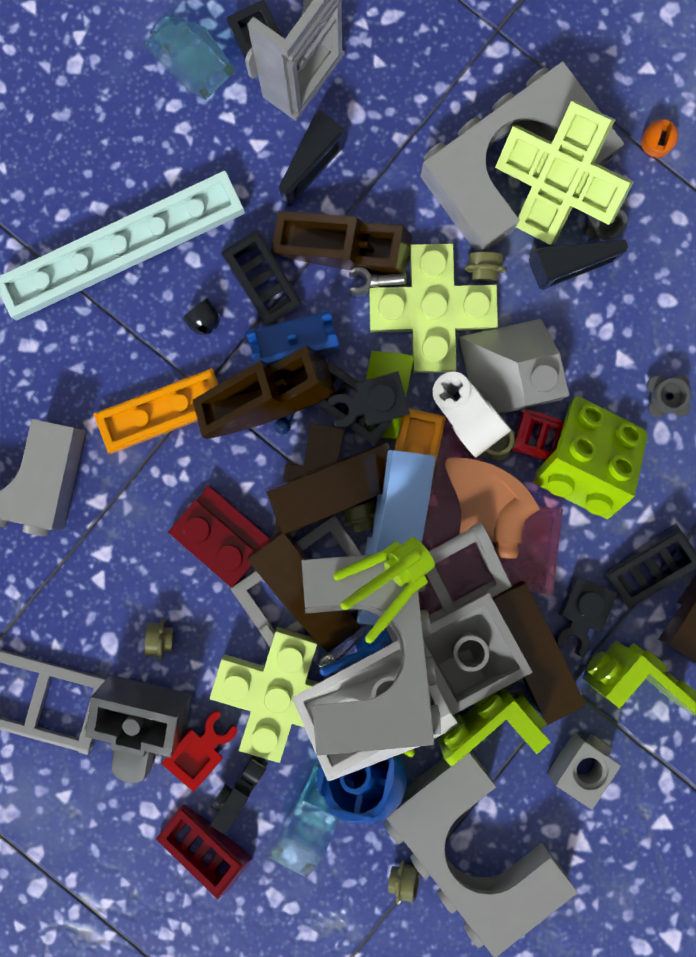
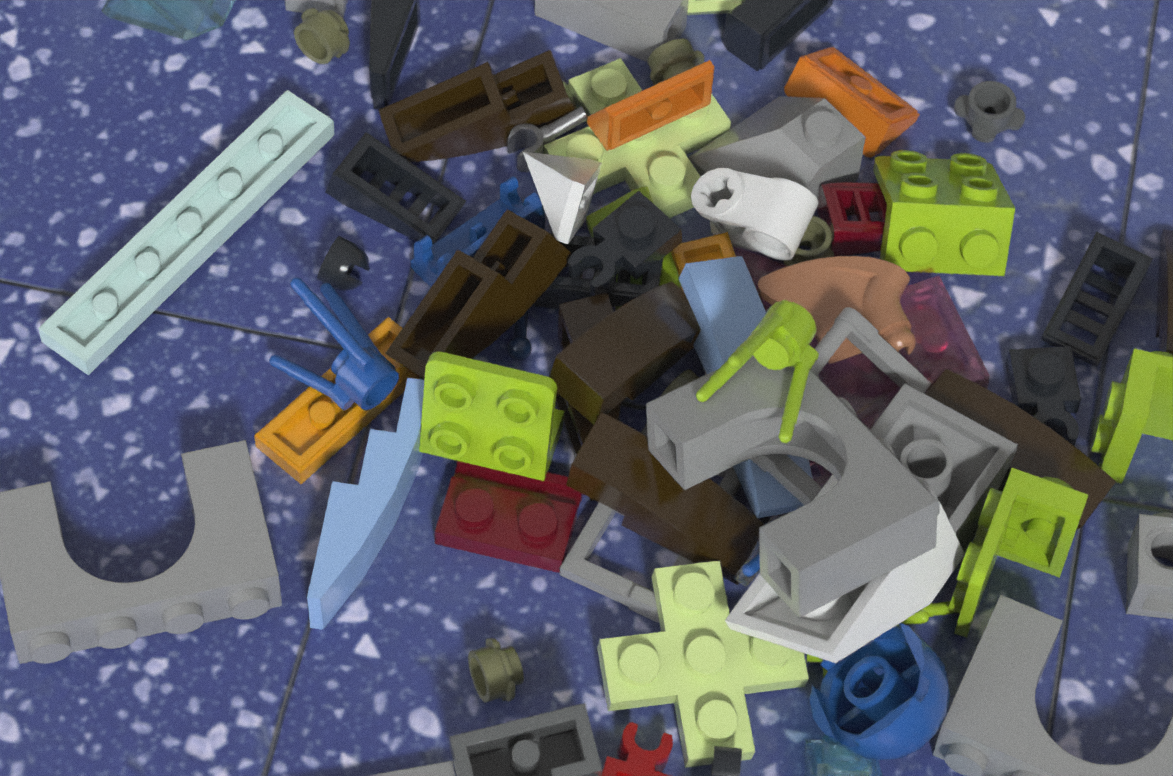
camera: 30 degrees left, 30 degrees down
(125, 505) = (364, 514): none -> light blue slope
(167, 410) = (360, 368): none -> blue plant
(228, 481) = (489, 415): none -> lime bracket
(271, 133) = (322, 35): none -> olive plate
(353, 339) = (564, 190): none -> white slope
(448, 297) = (653, 107): none -> orange slope
(585, 342) = (855, 94): none -> orange slope

